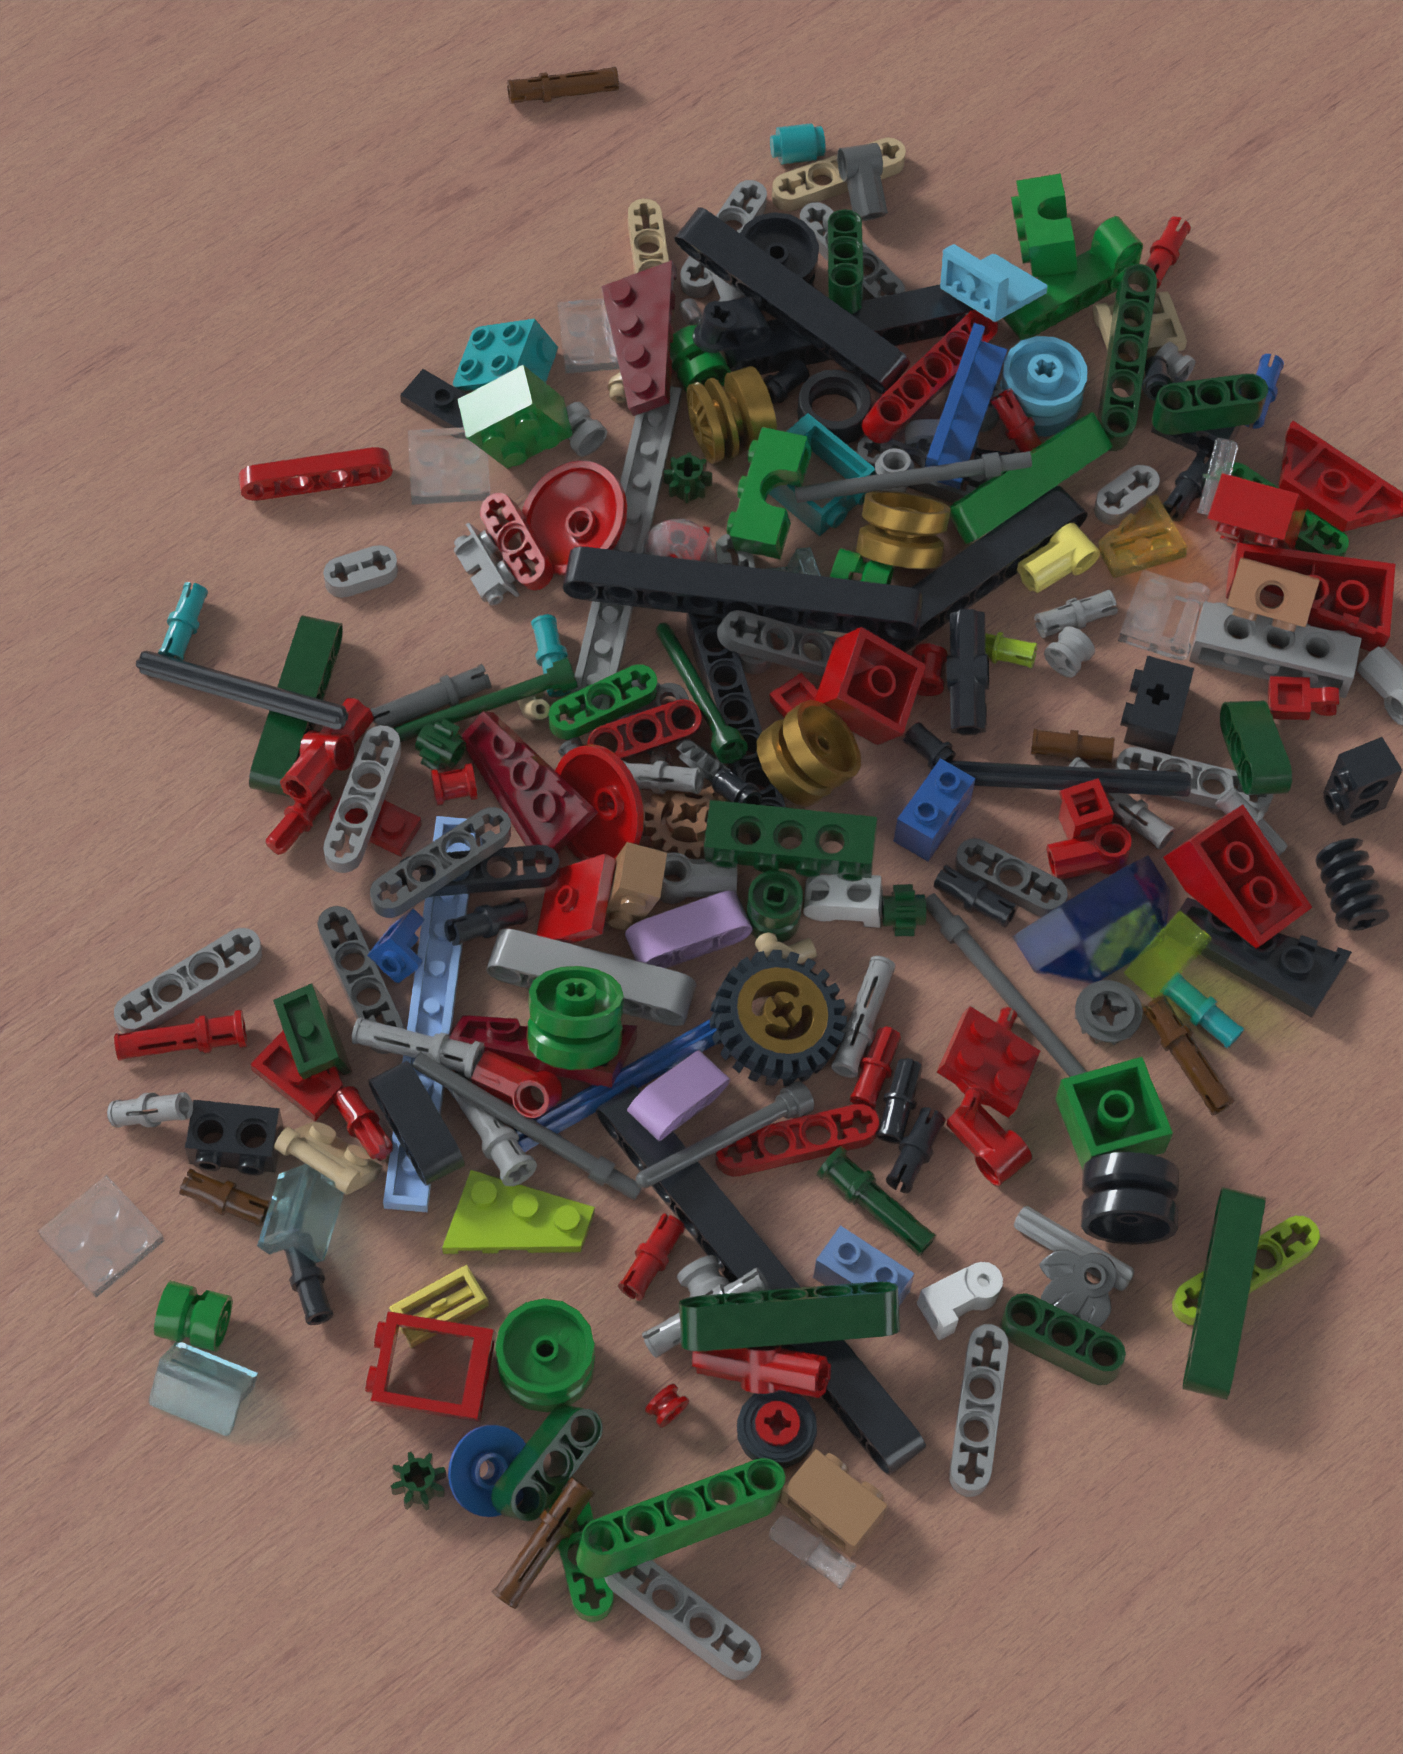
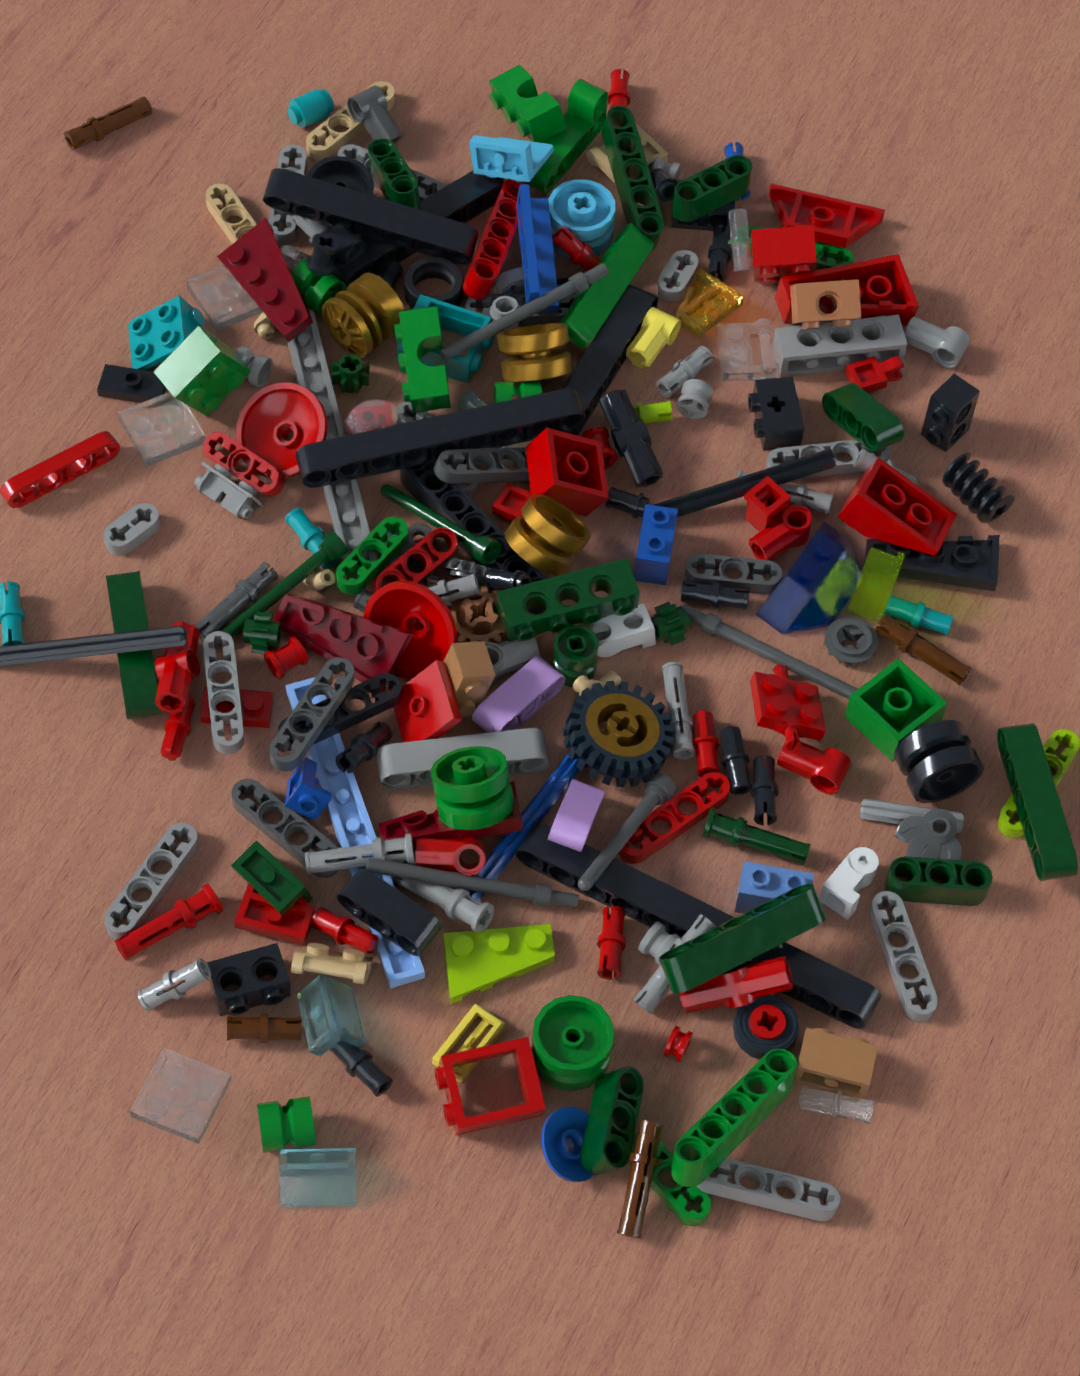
camera: 25 degrees left, 5 degrees down
(413, 1467) = (521, 1185): dark green gear -> none
(1072, 745) = (730, 464): reddish brown pin -> none

